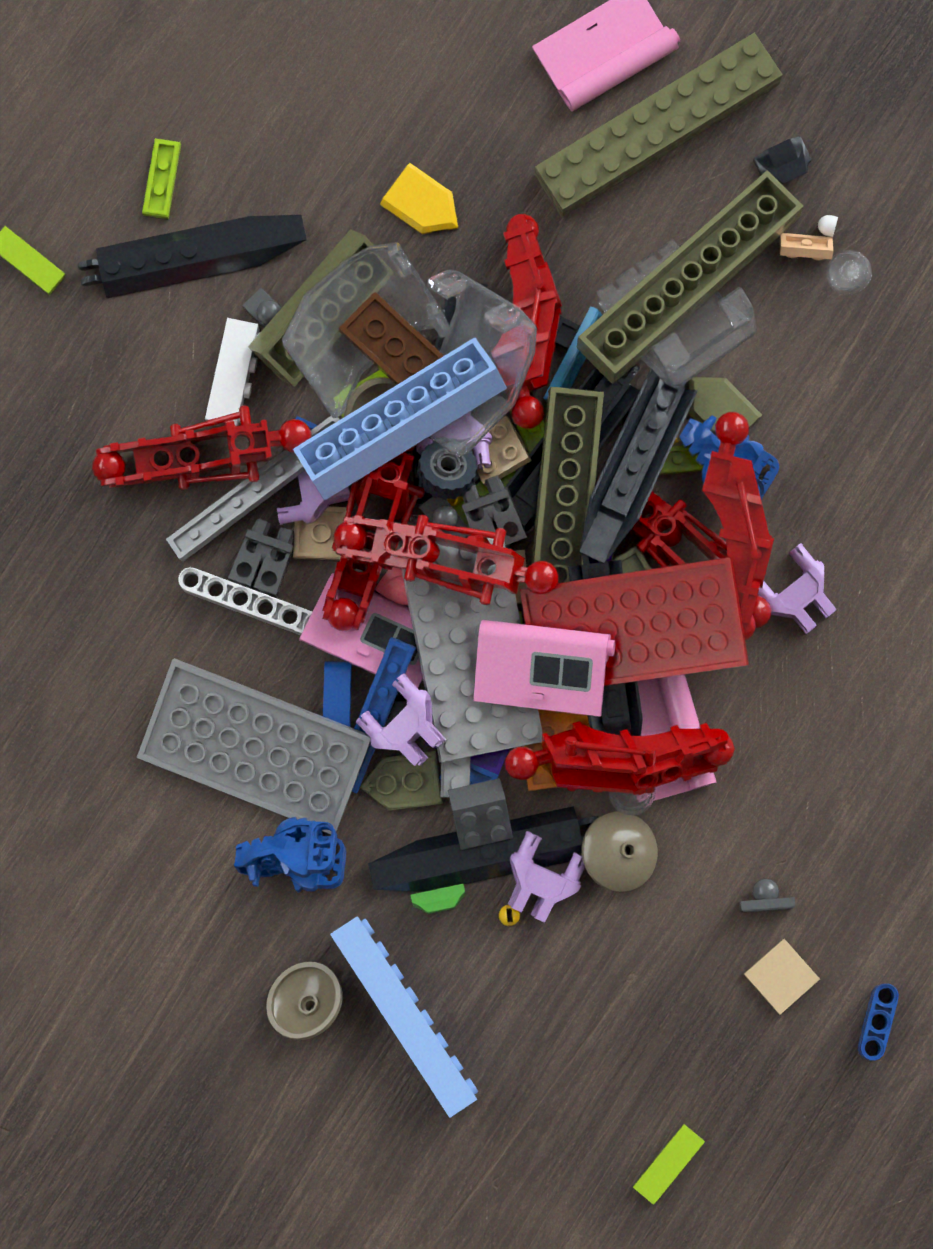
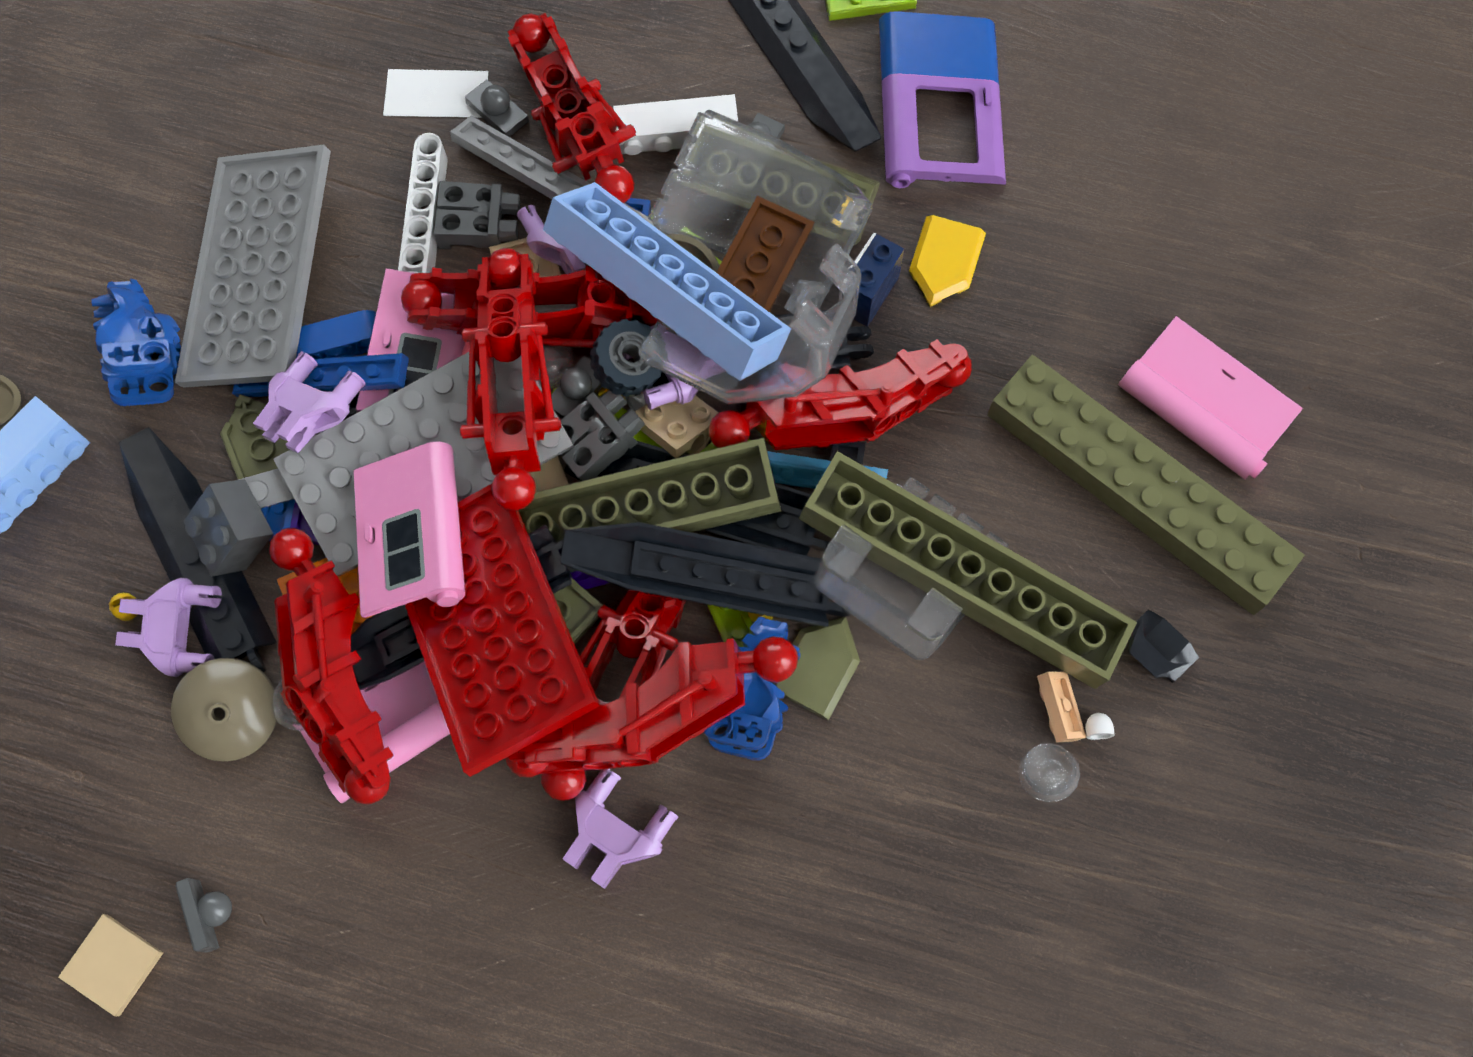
camera: 75 degrees right, 10 degrees down
(127, 564) = (431, 92): none -> white sticker
(163, 517) = (496, 108): none -> dark grey tile
(242, 143) = (942, 56): none -> piece
(427, 259) = (880, 270): none -> dark blue piece
(438, 899) = (118, 515): bright green slope -> none

